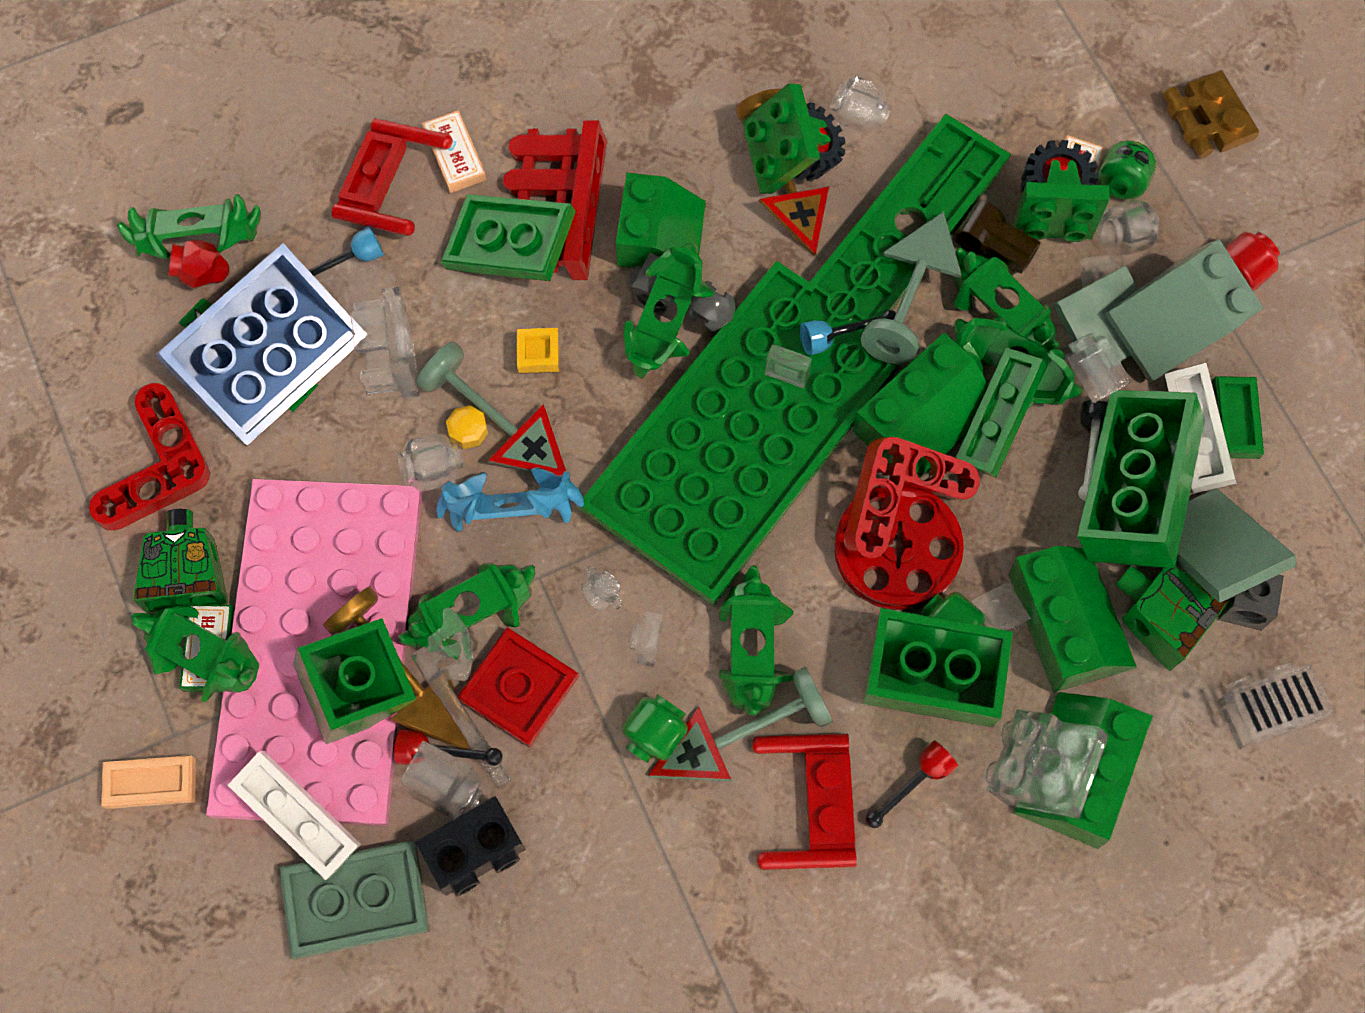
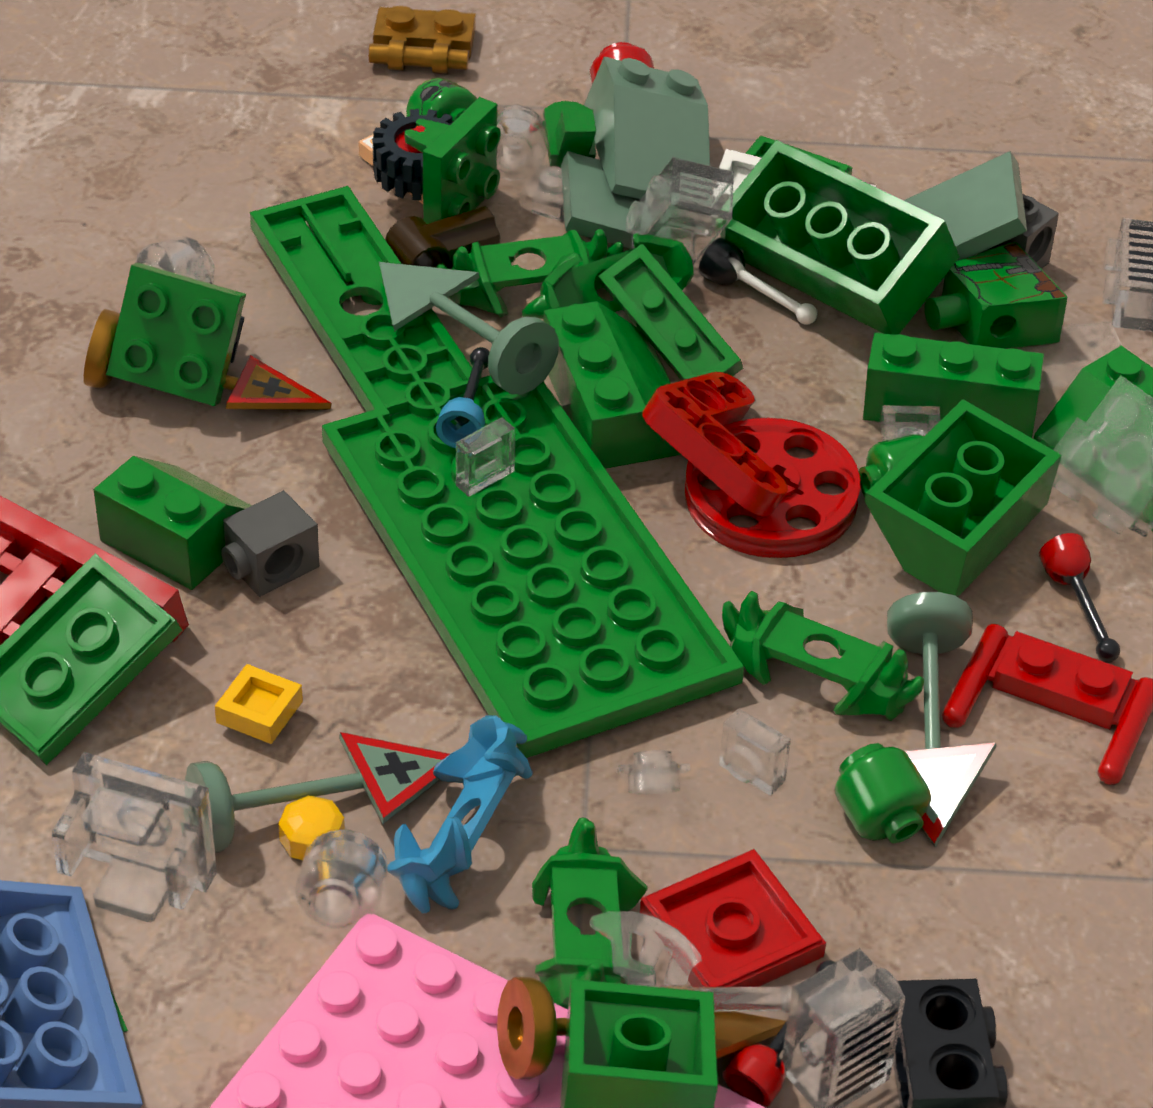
camera: 65 degrees left, 25 degrees down
(656, 341) = (290, 495): green piece -> none
(714, 310) = (338, 505): dark grey piece -> none
(1153, 255) = (569, 128): none -> green piece

